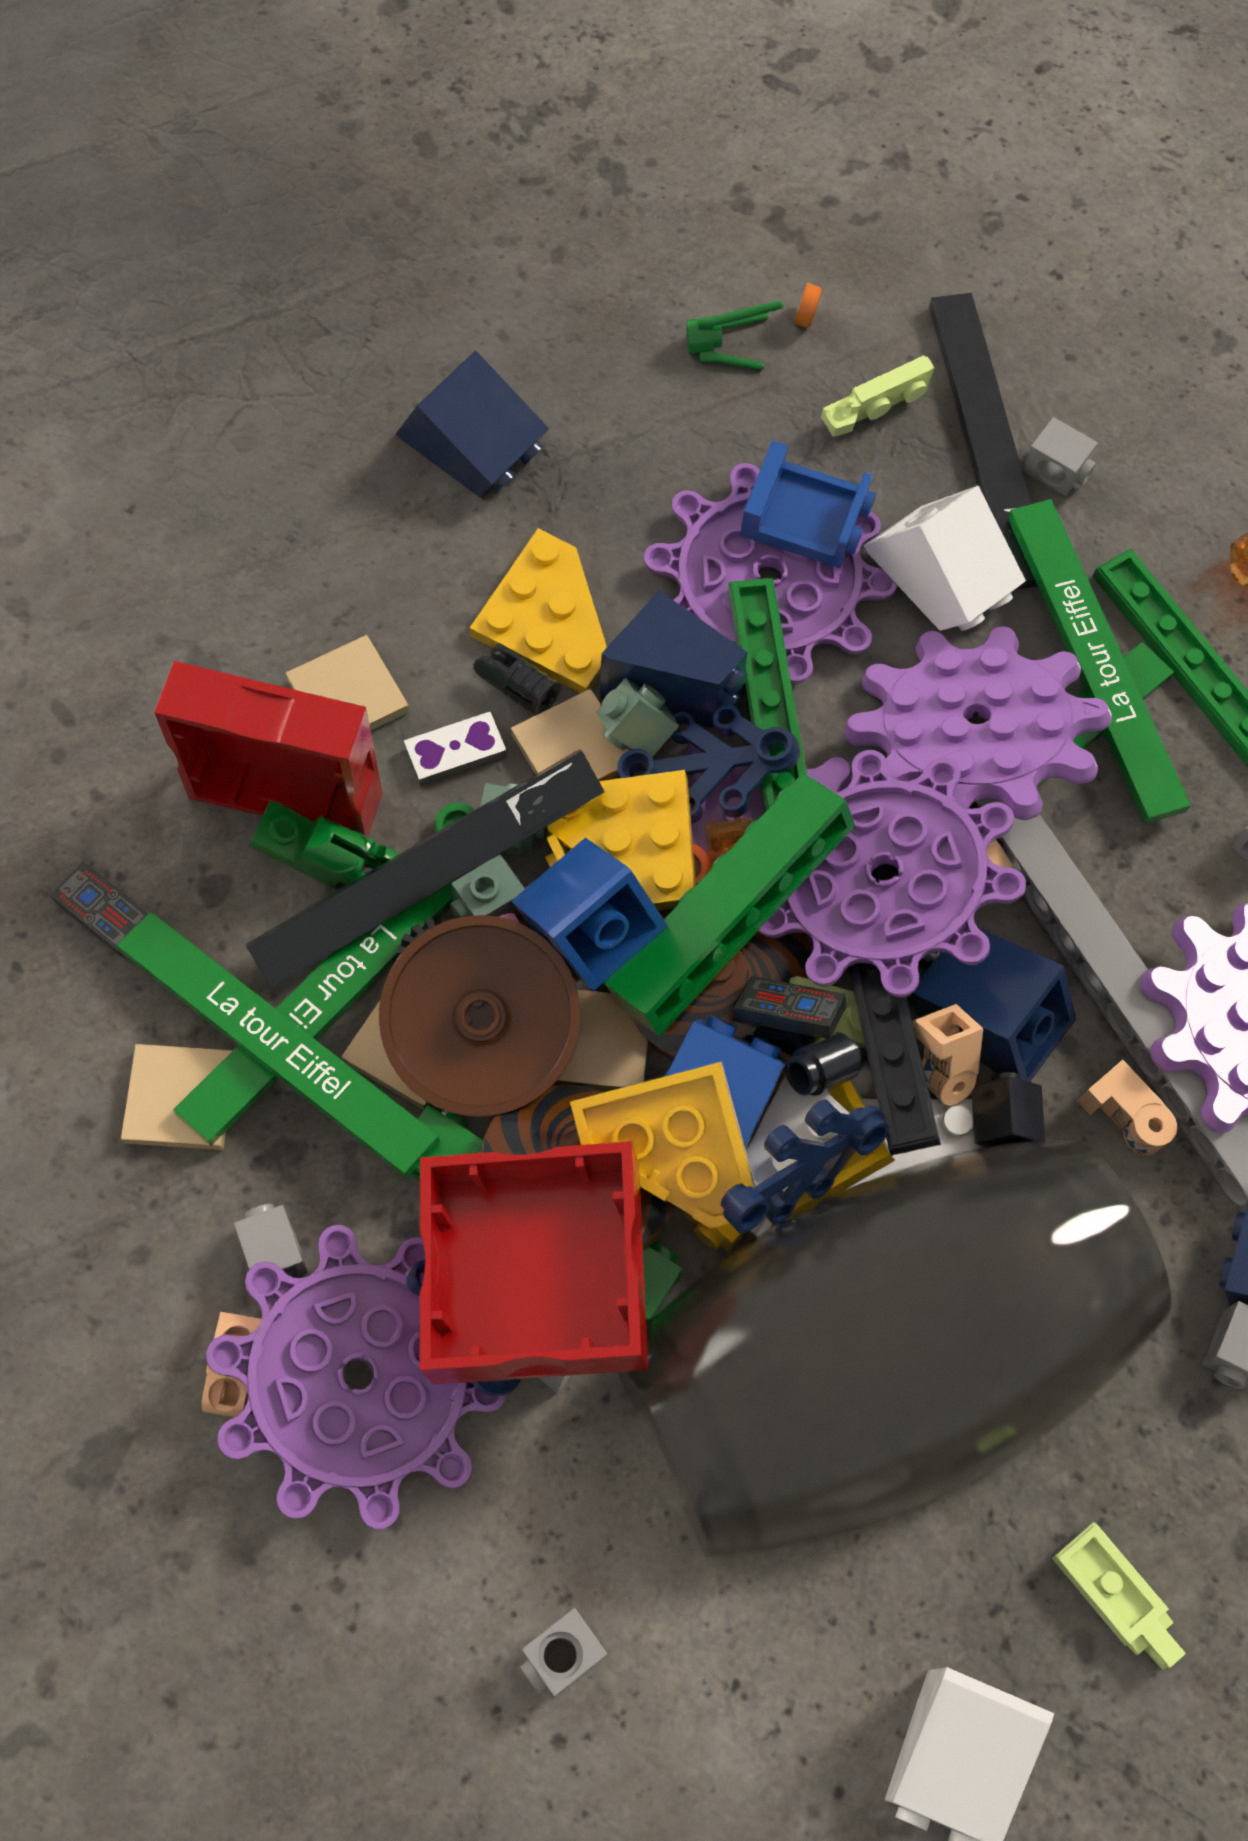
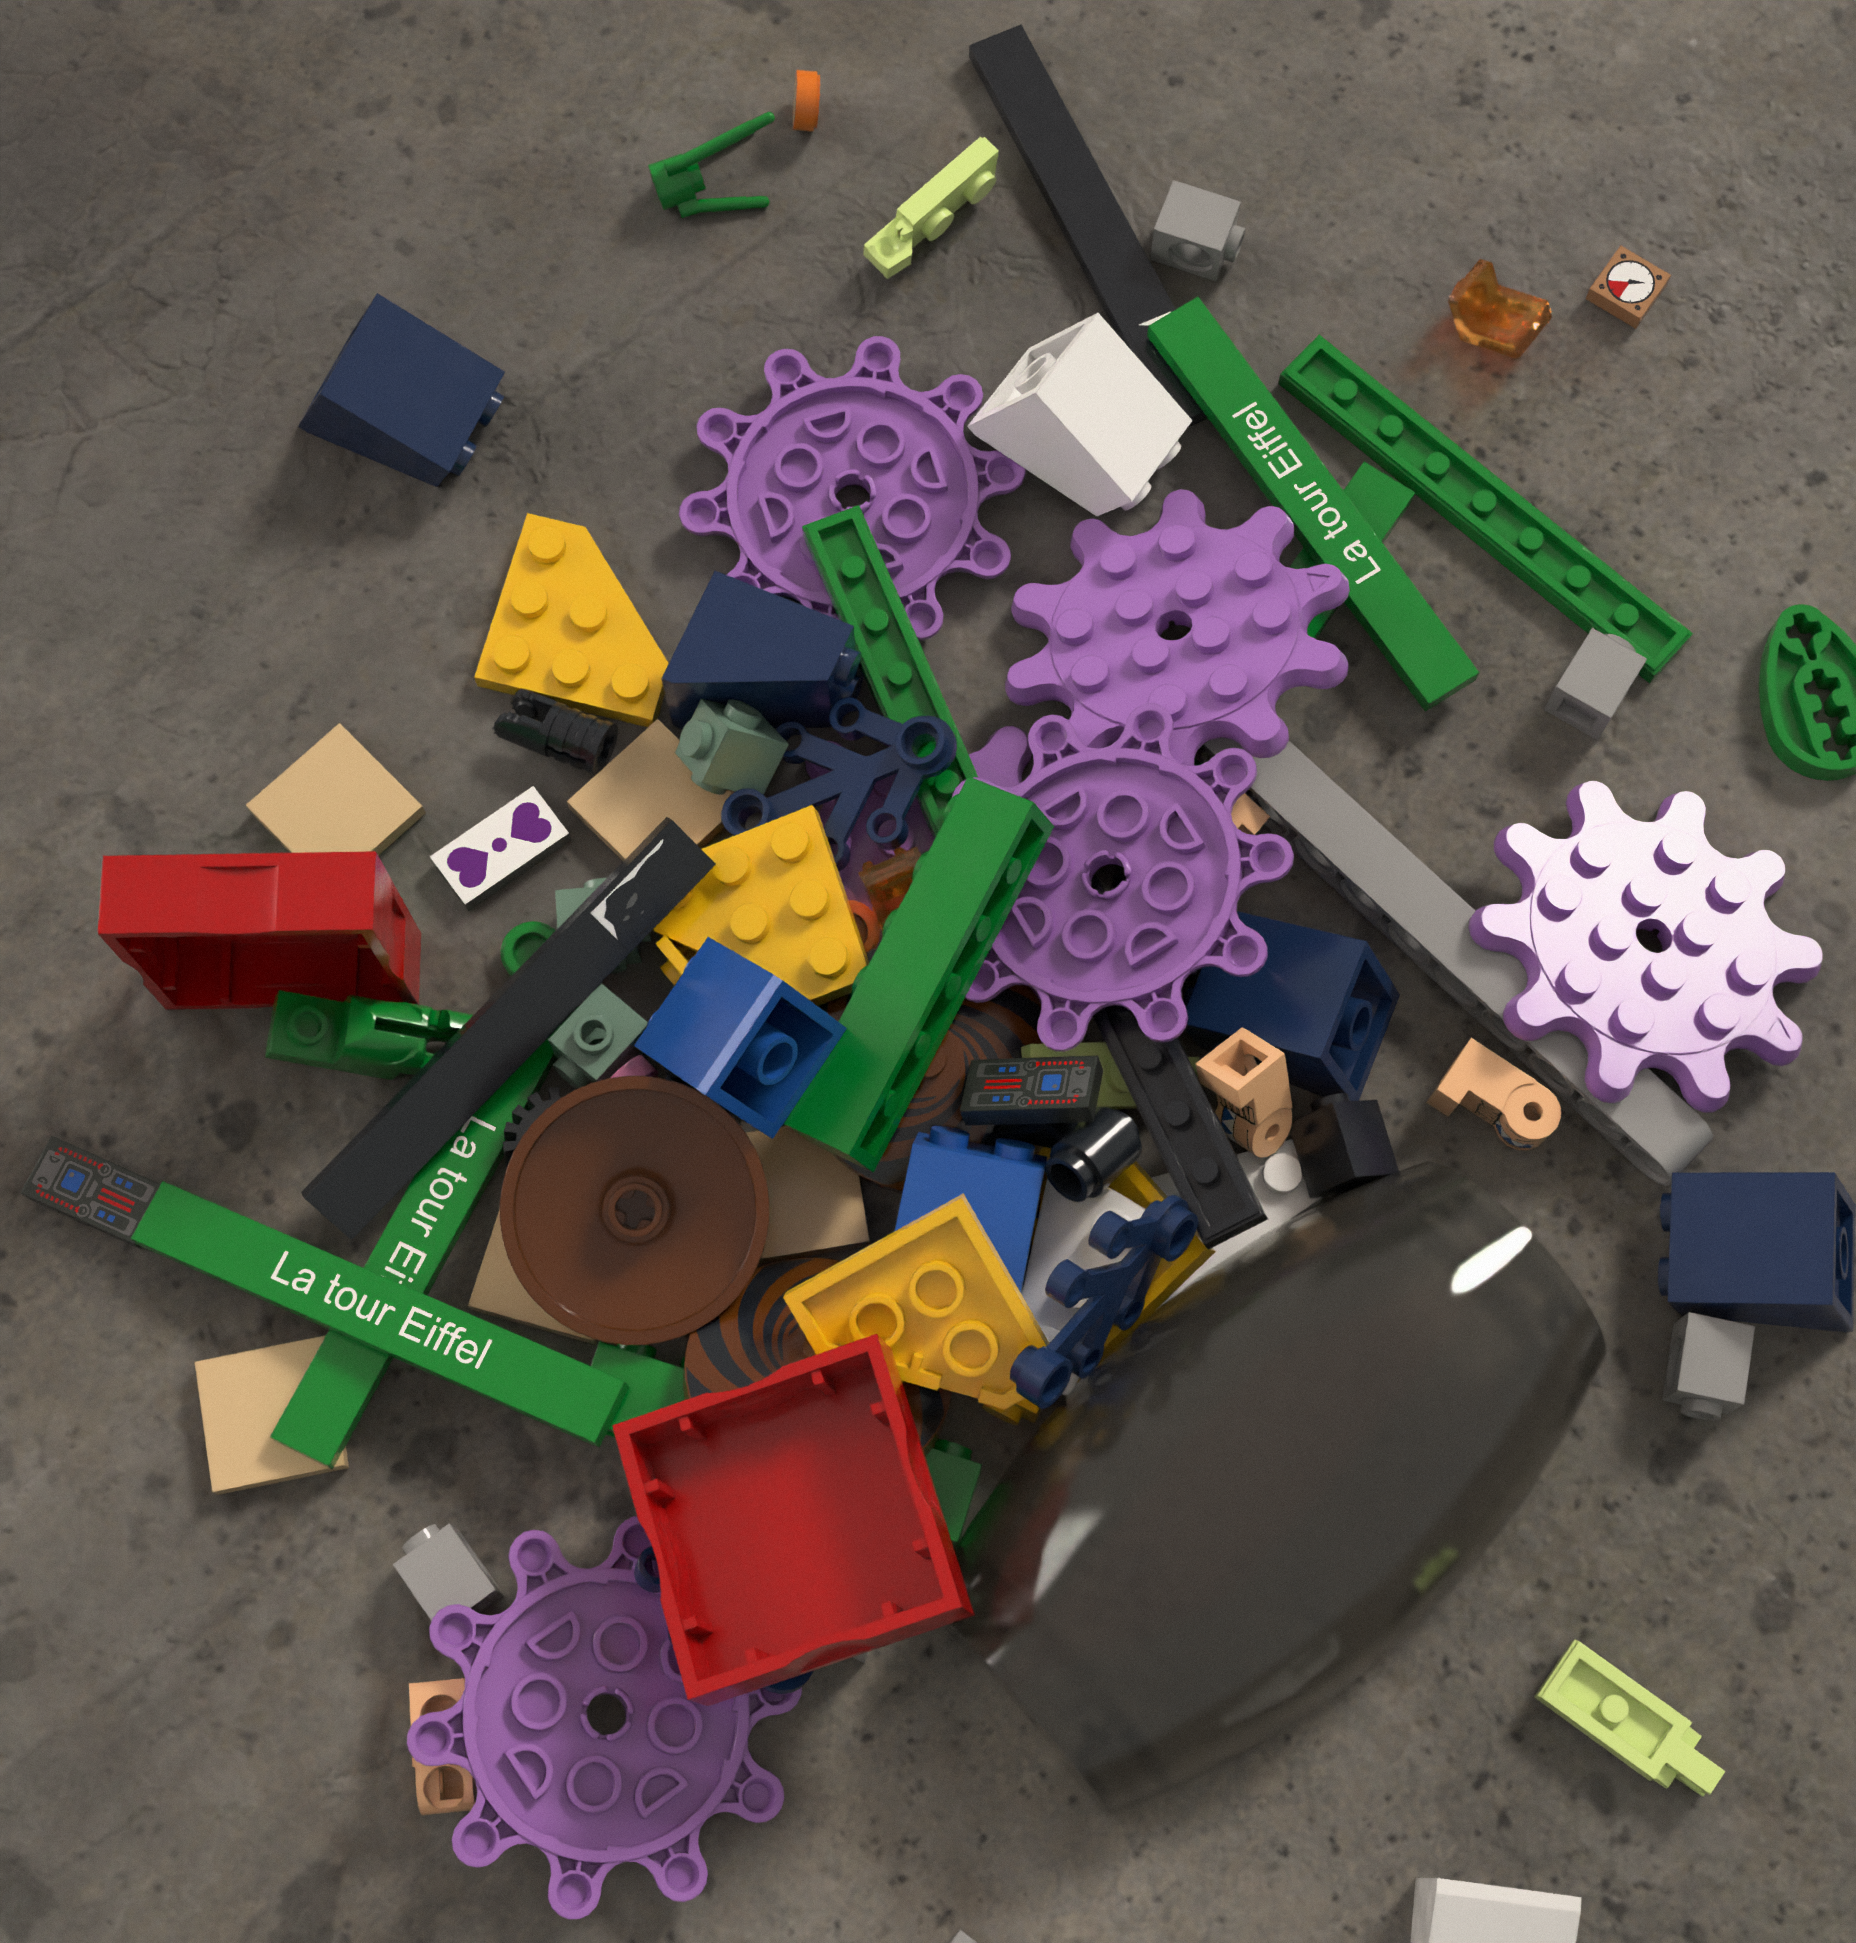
camera: 10 degrees left, 5 degrees up
(805, 509) = (878, 397): blue panel -> none

